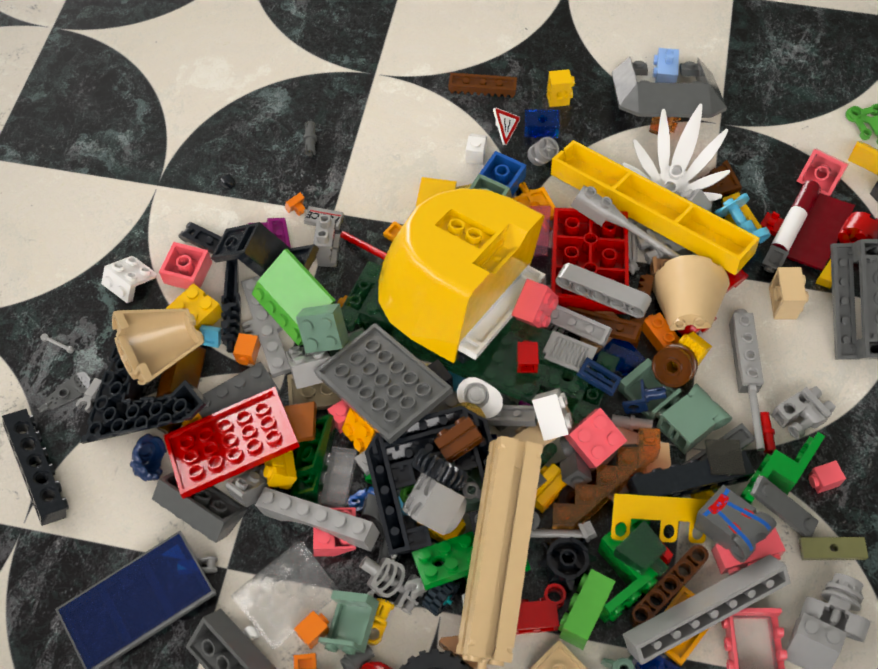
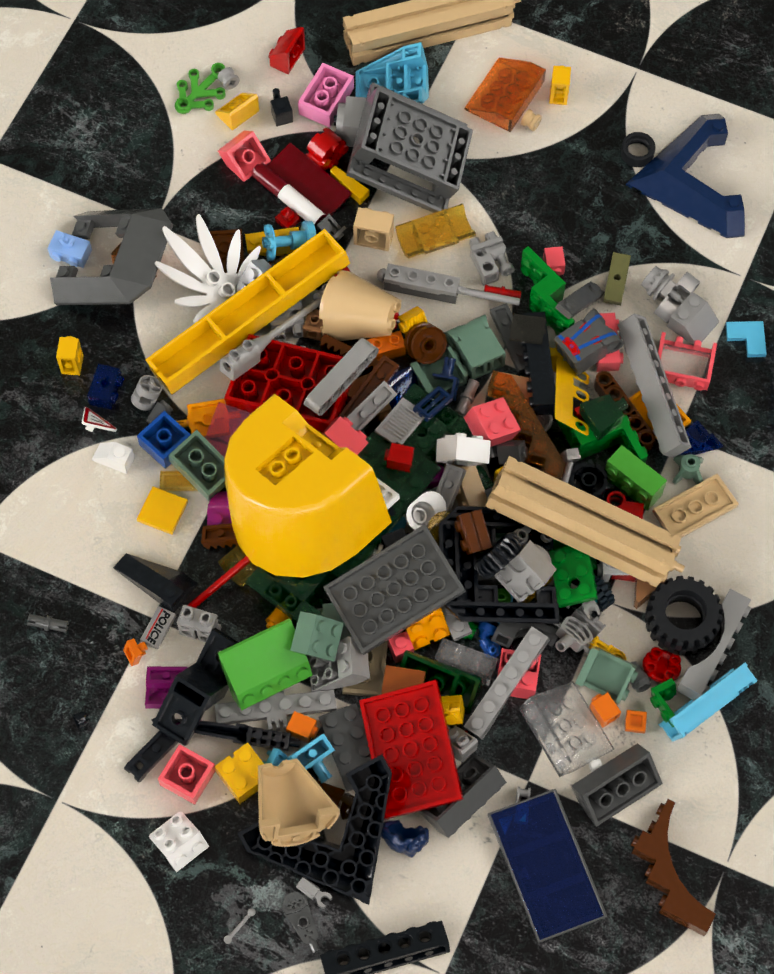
camera: 80 degrees left, 5 degrees up
(217, 362) = (312, 755): none -> medium azure brick
(366, 207) = (160, 582): none -> black wedge
(391, 232) = (198, 559): light orange tile -> none
(482, 84) = (31, 431): reddish brown gear -> none
(533, 170) = (158, 409): none -> dark grey cone
(813, 353) = (434, 231): none -> clear yellow piece

